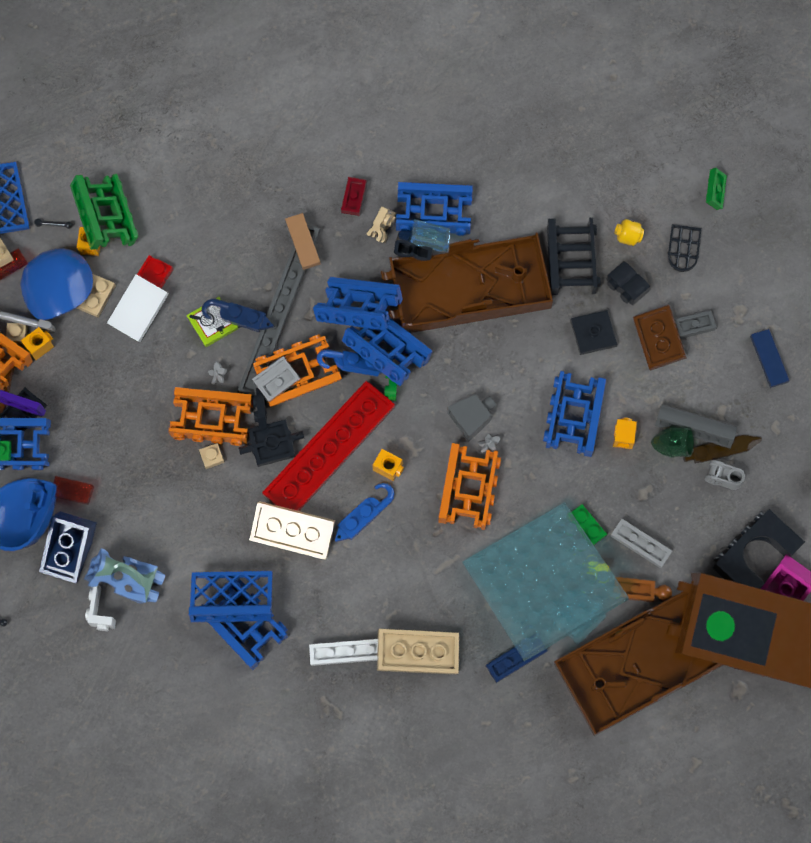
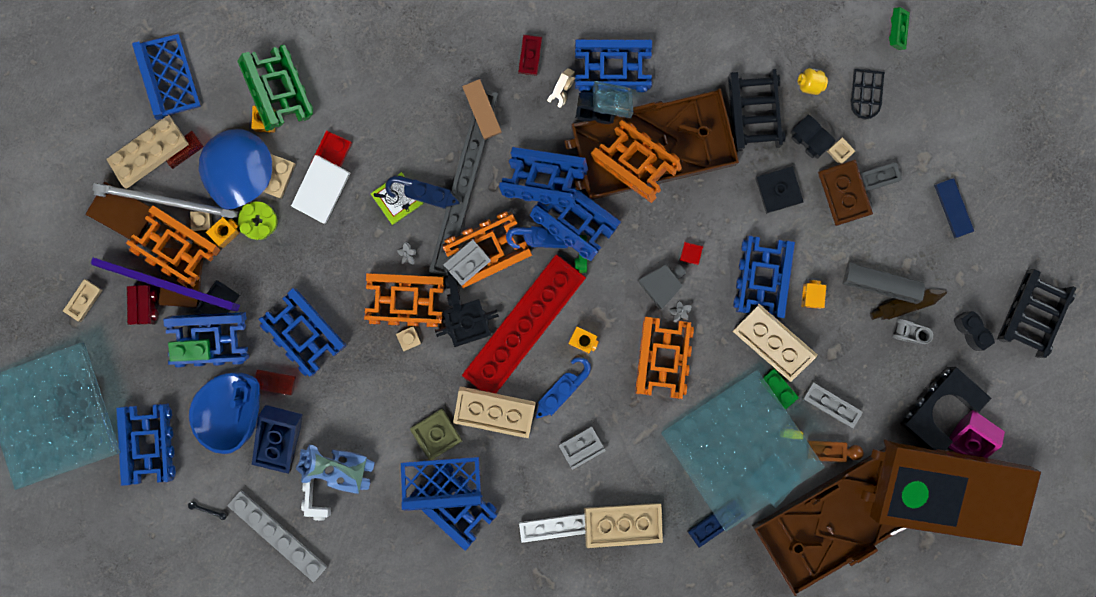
camera: 10 degrees left, 15 degrees up
(38, 223) = (209, 100): black hinge -> none
(57, 646) = (277, 536): none -> light grey plate
(66, 327) = (264, 229): none -> lime plate
(116, 434) = (315, 321): none -> blue fence
(231, 551) = (436, 434): none -> olive tile
(380, 572) = (581, 448): none -> light grey plate
(443, 304) = (626, 172): none -> orange fence
(502, 388) = (691, 253): none -> red tile
(583, 476) = (775, 342): none -> tan plate
(656, 298) = (841, 151): none -> tan plate
(674, 442) = (862, 303): clear green helmet -> none
(785, 472) = (975, 333): none -> black brick

